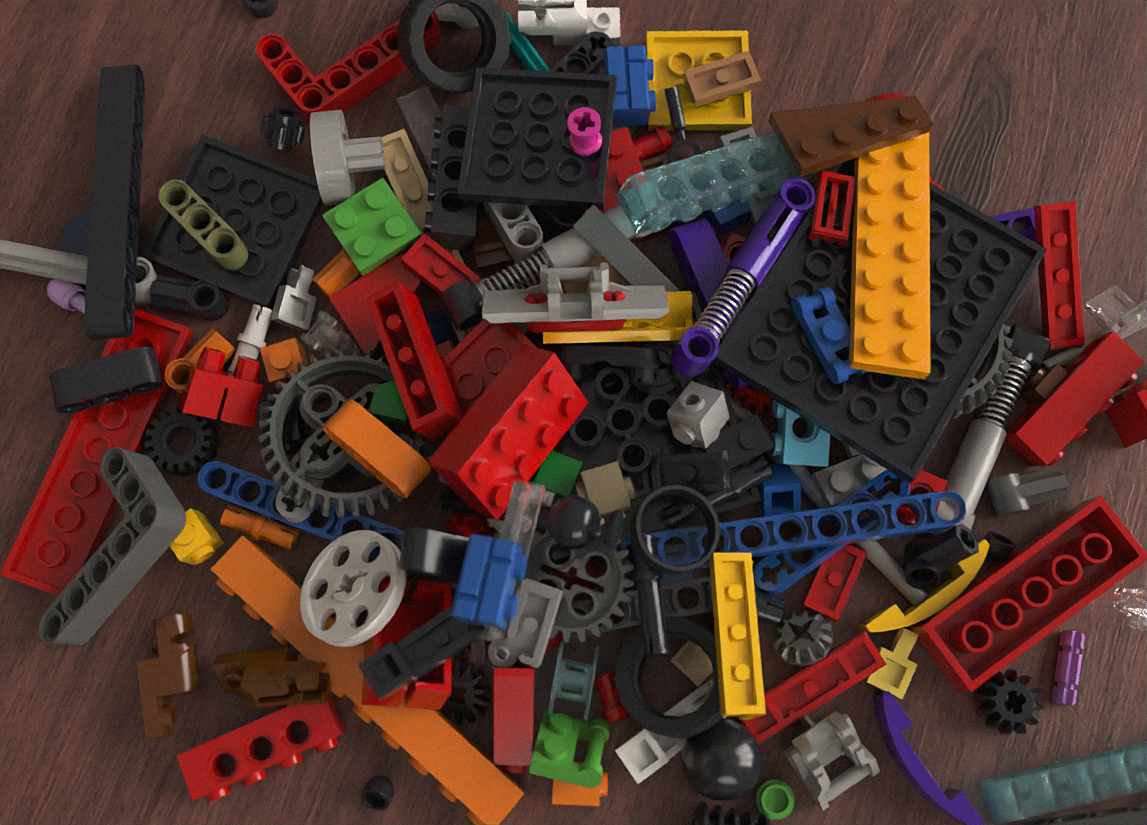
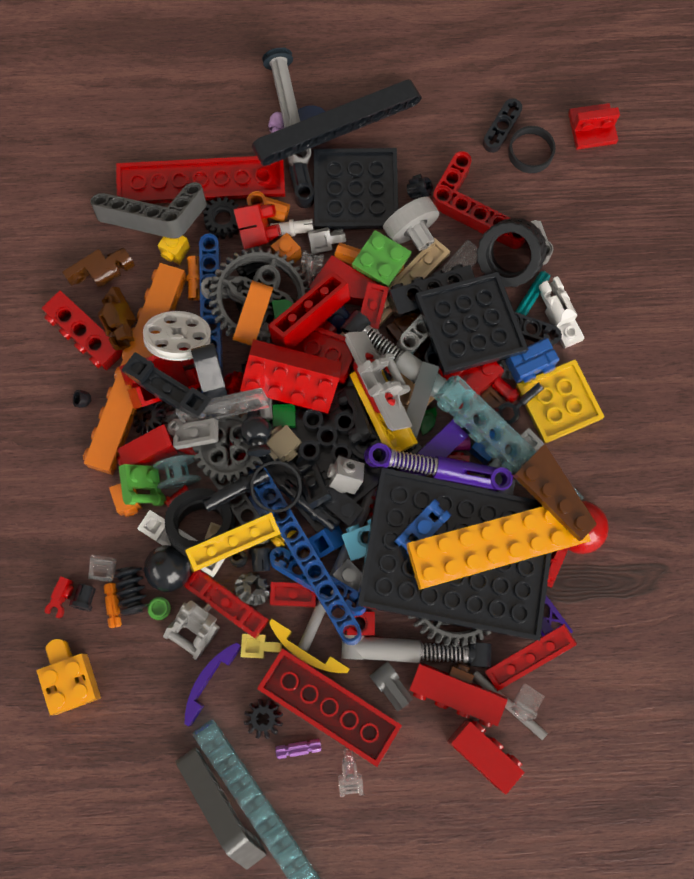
camera: 65 degrees right, 0 degrees up
(105, 380) = (236, 165): black beam -> none
(192, 214) = (342, 163): olive beam -> none
(488, 582) = (201, 396): blue brick -> none
(584, 129) = (479, 344): dark pink bush -> none
(721, 79) = (562, 412): medium nougat plate -> none
(828, 233) = (486, 507): red tile -> none
(928, 558) = (328, 643): black piece -> none
(999, 548) = (351, 681): black hinge -> none

